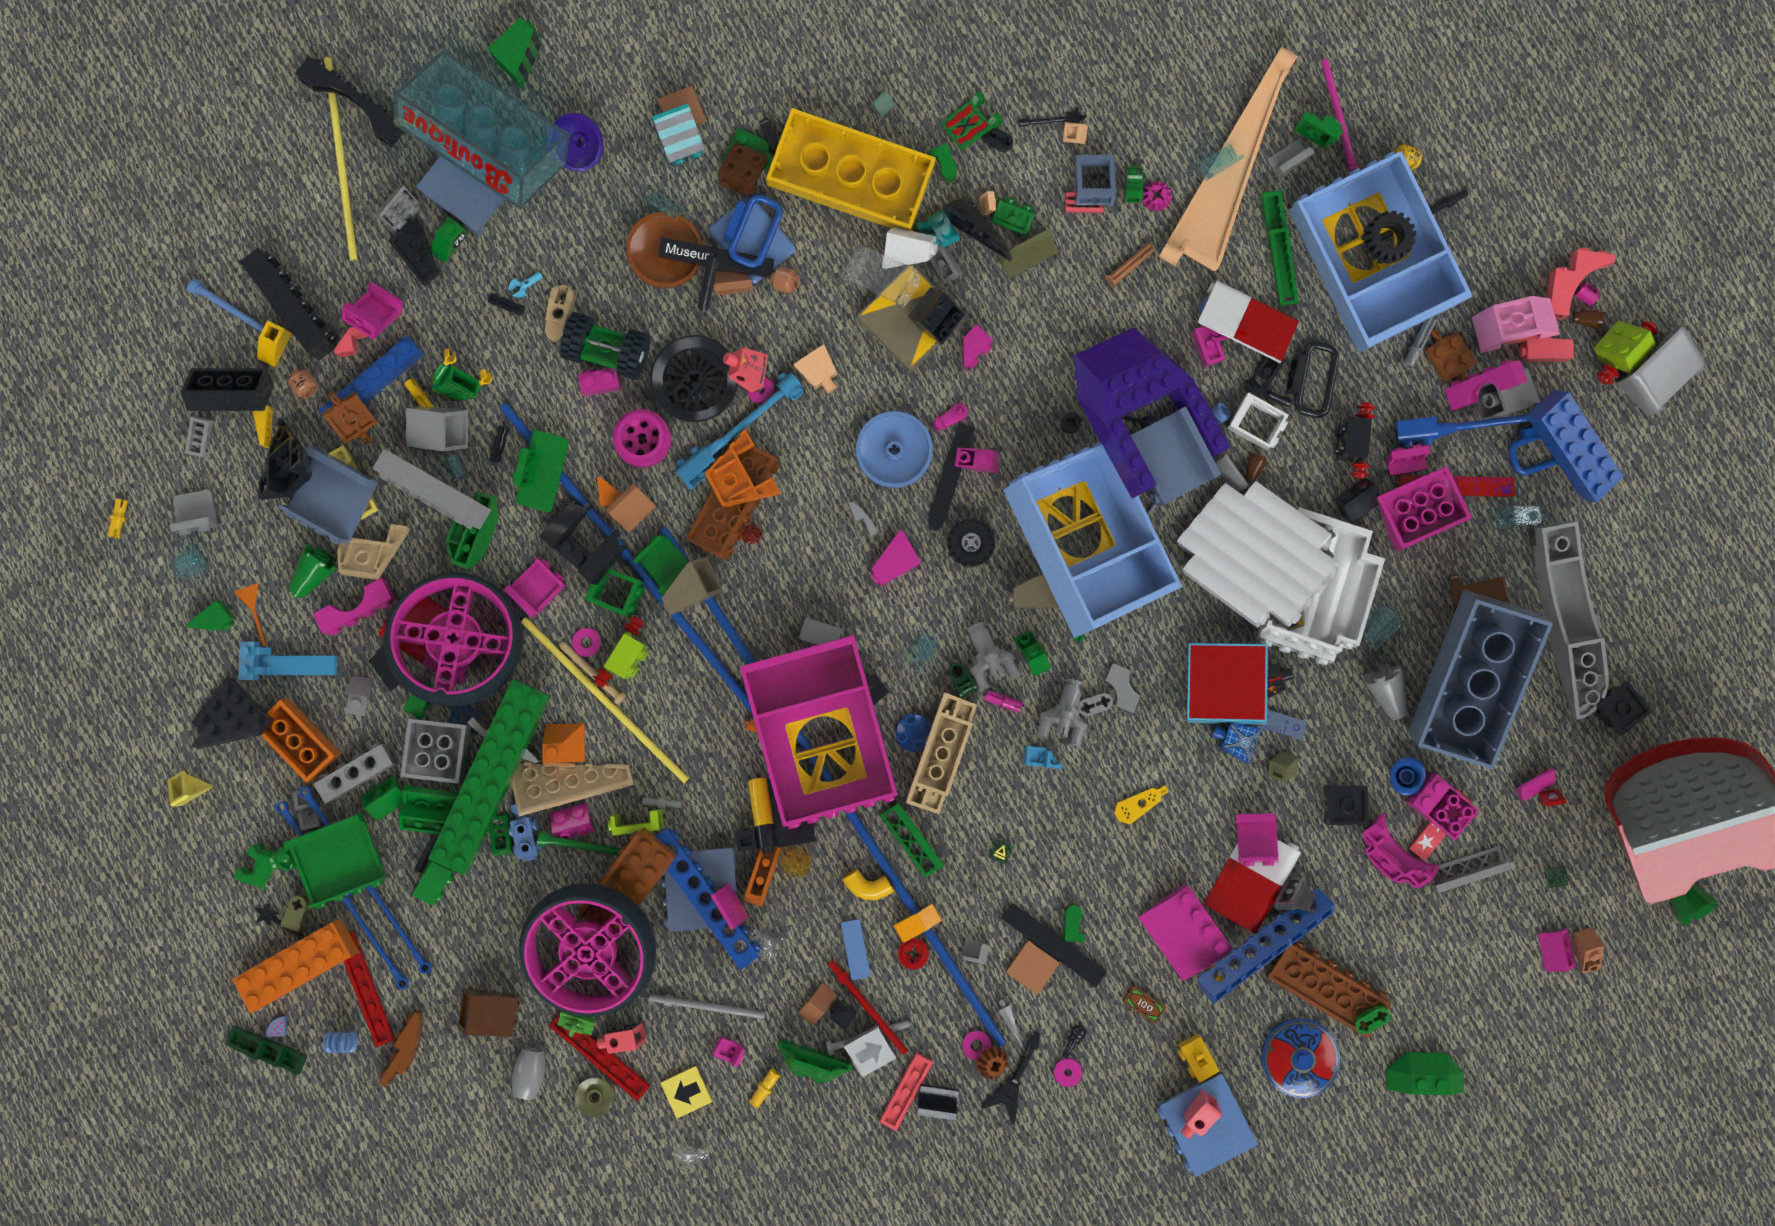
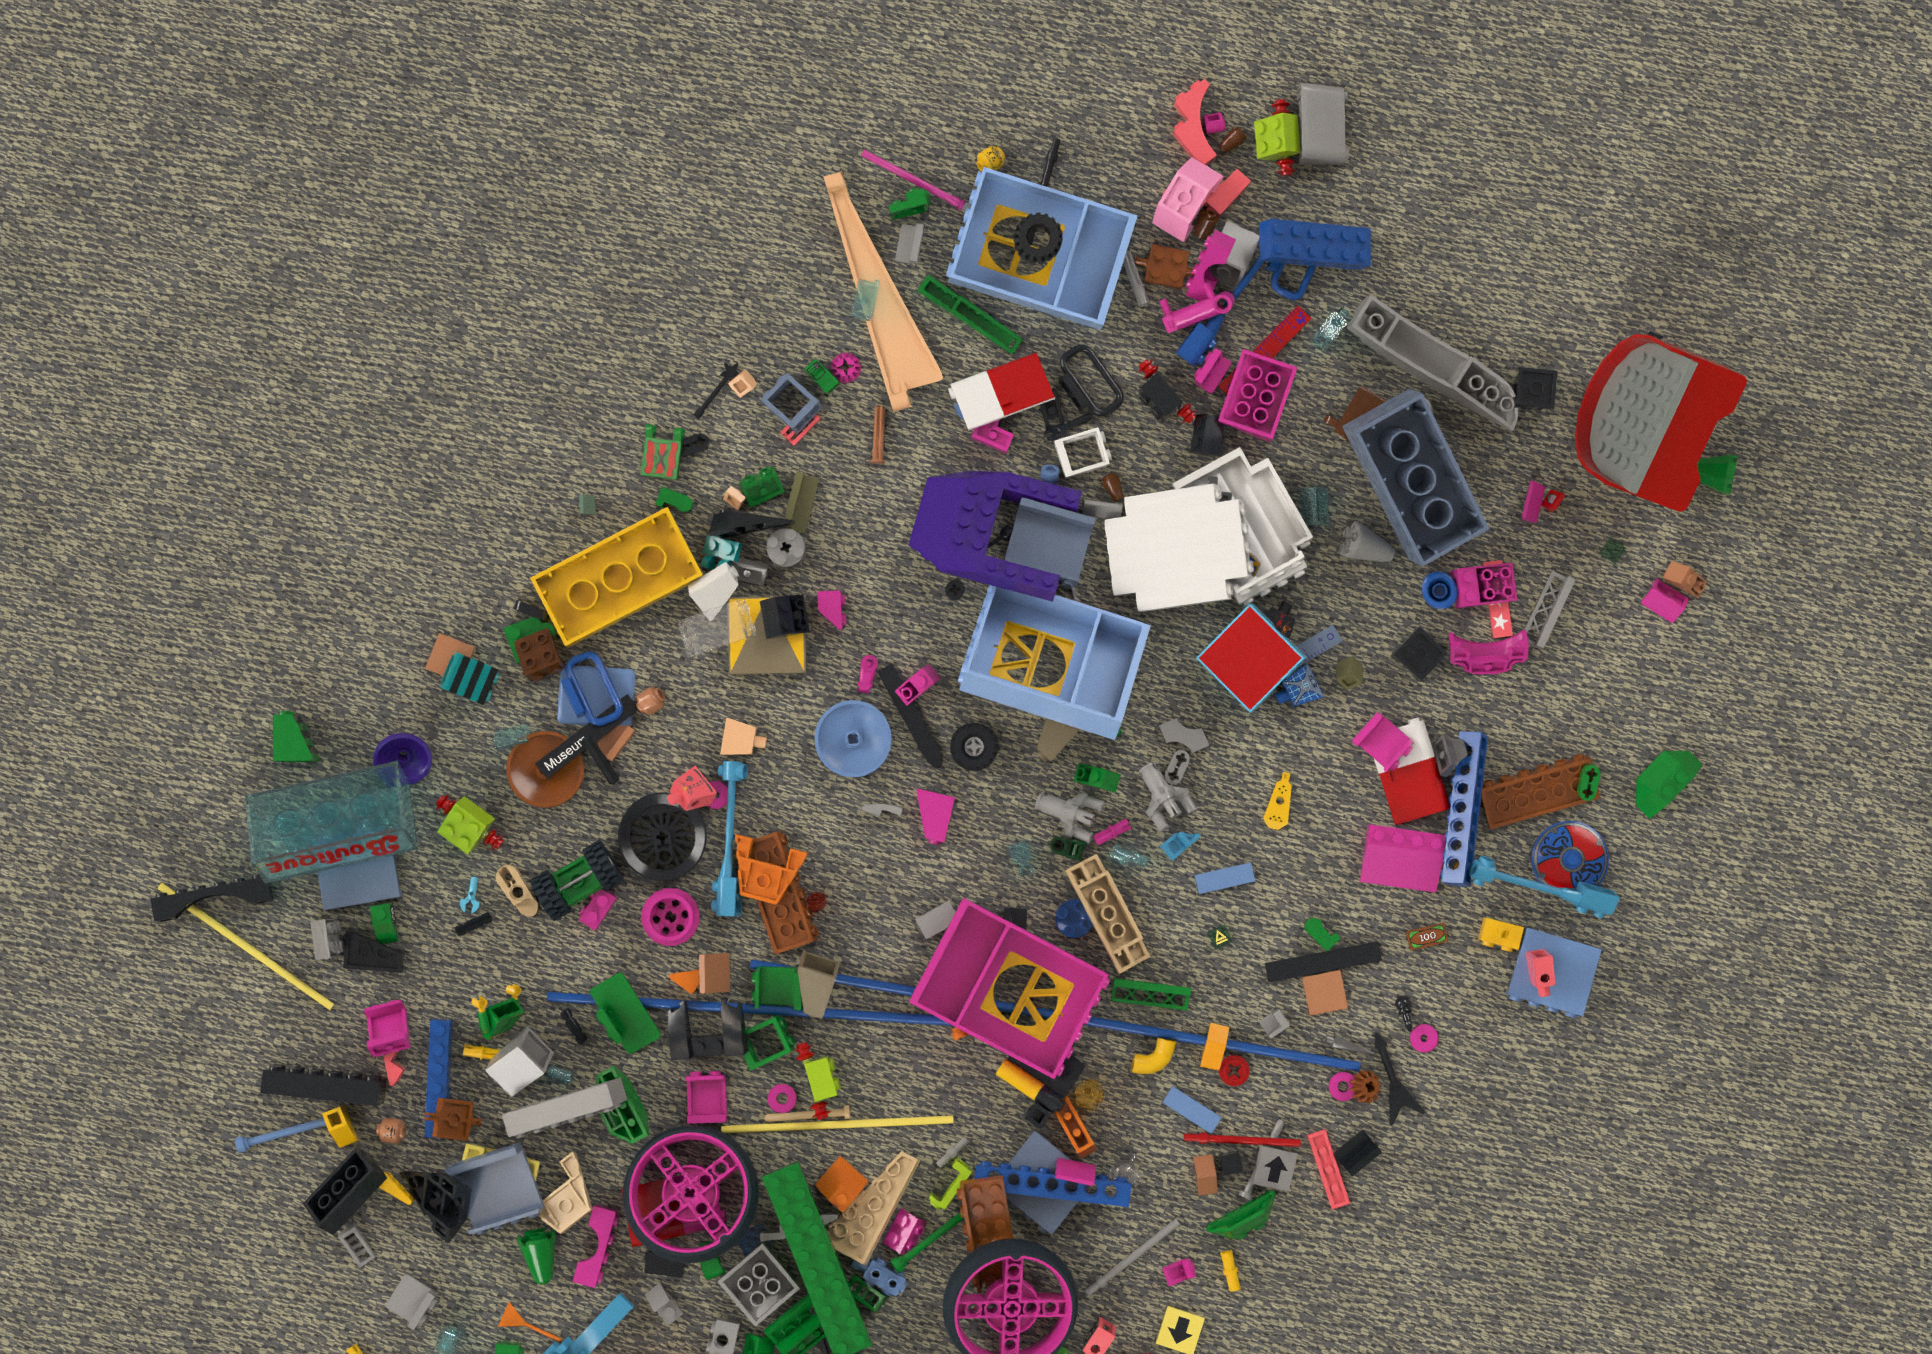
camera: 45 degrees left, 0 degrees up
(572, 232) = (467, 824): none -> lime brick
(993, 727) = (1124, 856): none -> clear light blue connector
(994, 280) = (791, 538): none -> light grey brick
(1047, 815) = (1224, 878): none -> medium blue tile
(1284, 1095) = (1584, 897): none -> dark azure bar
(1440, 407) = (1196, 312): none -> dark pink piece
(1511, 352) = (1205, 224): none -> reddish brown brick

